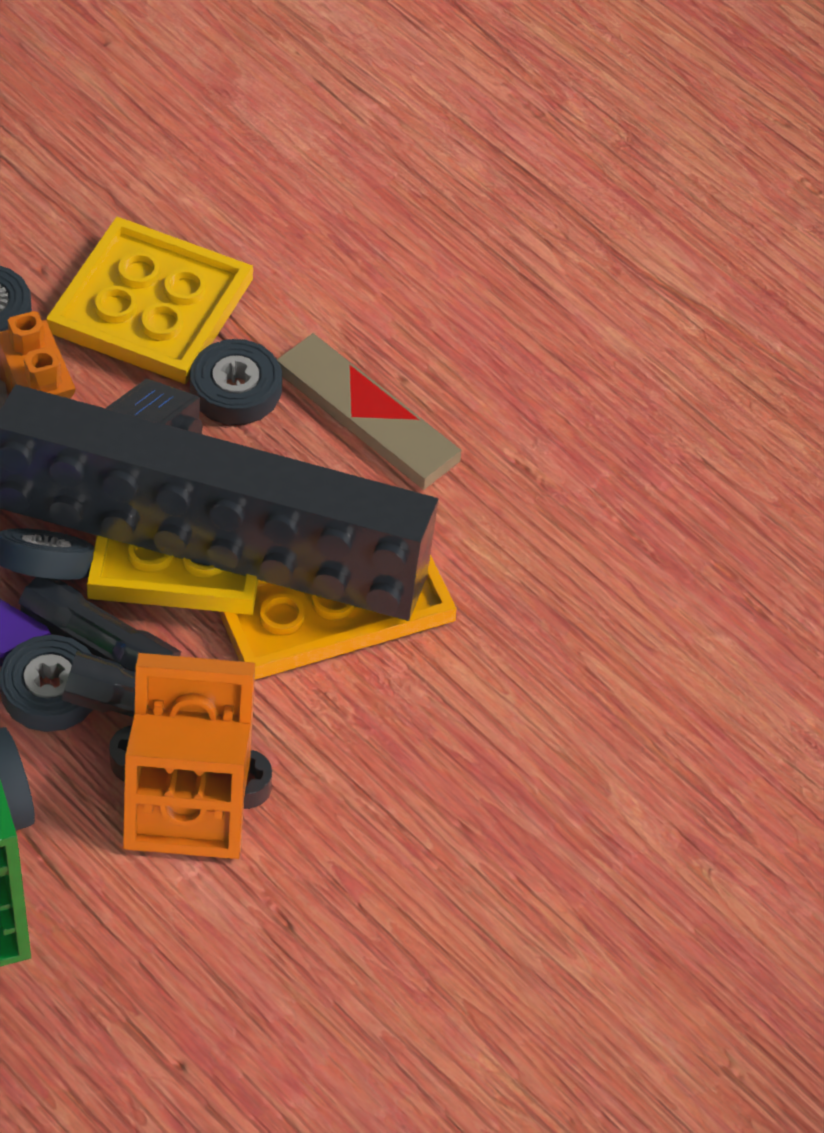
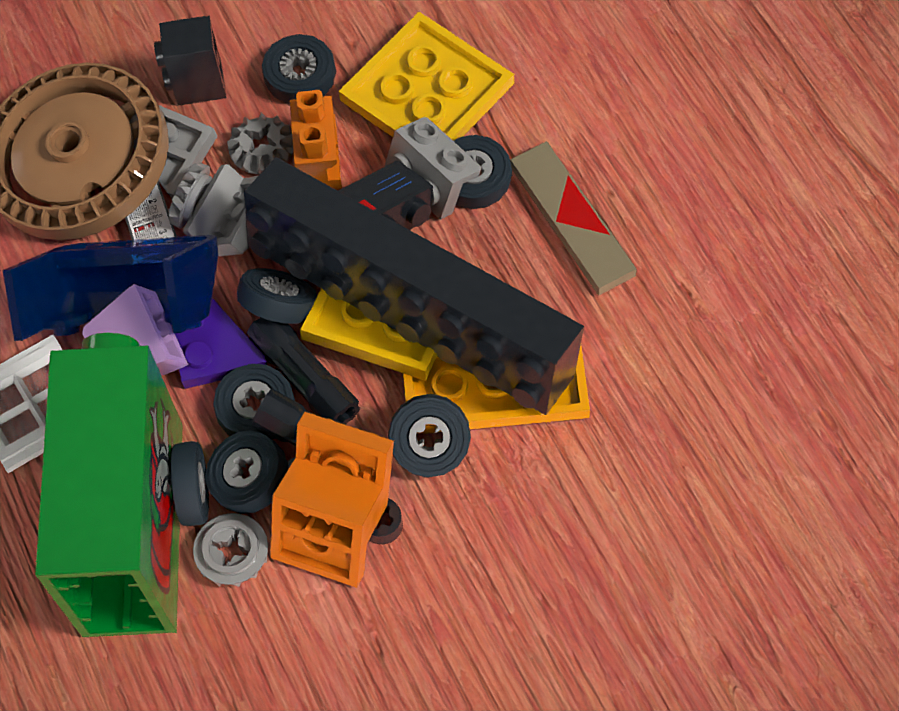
camera: 25 degrees right, 10 degrees up
(53, 835) = (222, 532): none -> light grey gear
(84, 777) = (266, 468): none -> black bush
(188, 366) = (435, 159): none -> light grey bracket
(308, 663) = (446, 452): none -> black bush

